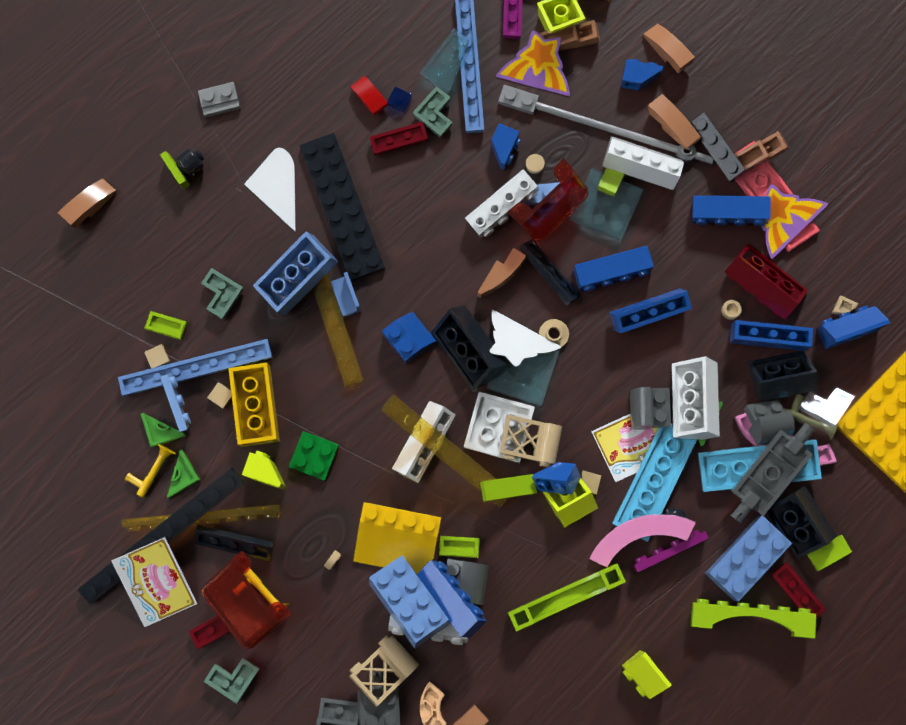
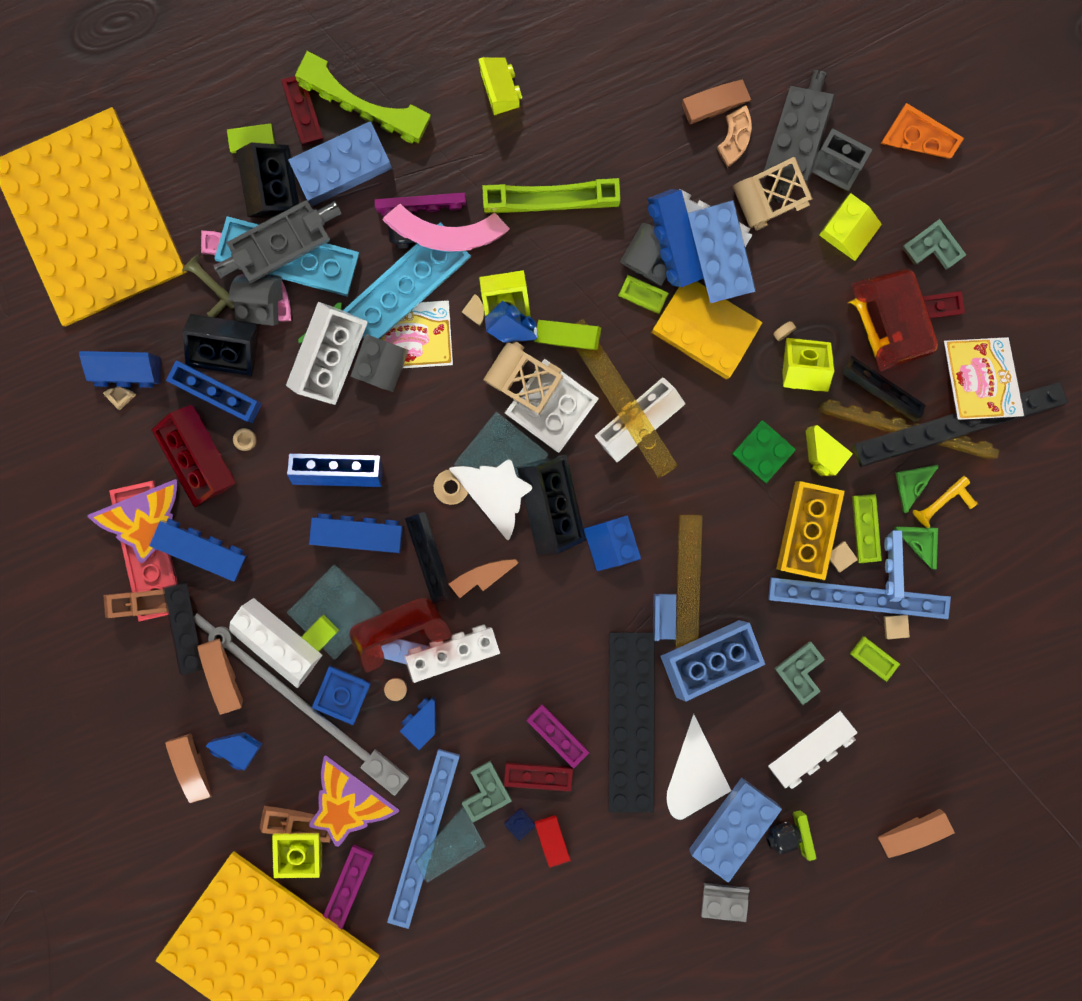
camera: 165 degrees left, 10 degrees up
(191, 235) = (813, 749): none -> white brick
(208, 426) = (866, 528): none -> lime tile
(231, 154) = (735, 829): none -> medium blue brick
(303, 539) = (807, 365): none -> neon yellow slope
(307, 668) = (851, 227): none -> neon yellow slope
(395, 174) = (558, 736): none -> magenta plate
(575, 143) = (341, 695): none -> blue plate
(827, 411) = (189, 287): clear plate -> none

